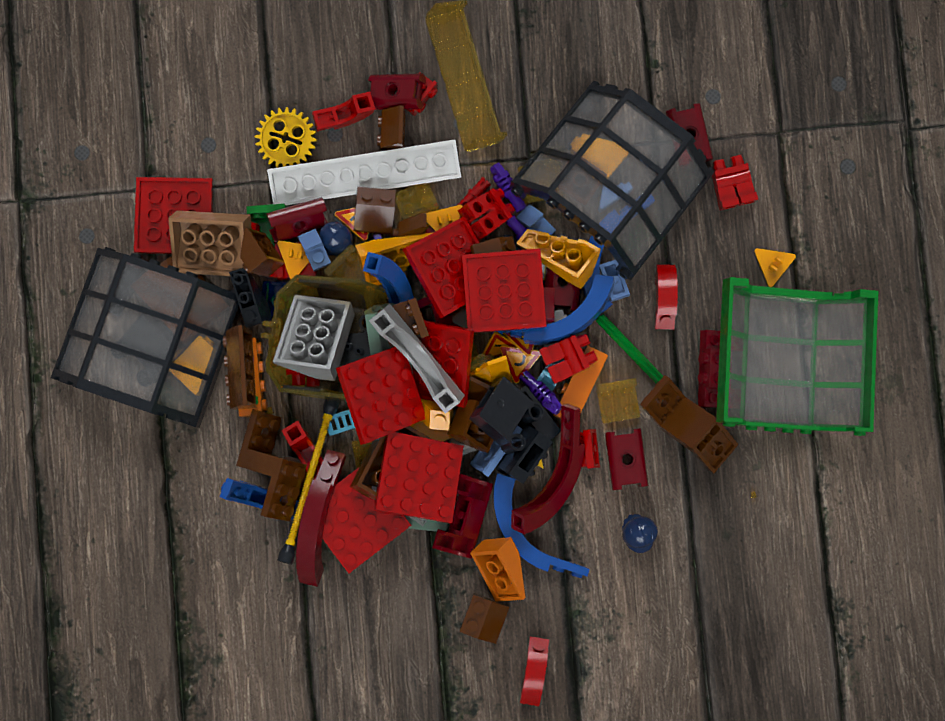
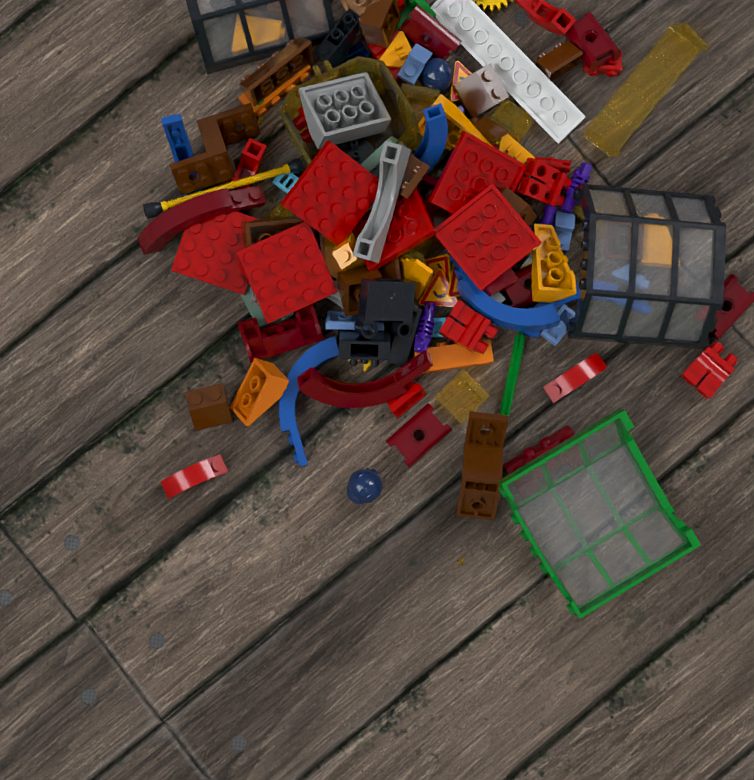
camera: 50 degrees right, 0 degrees up
(773, 264) = (665, 449): light orange piece -> none

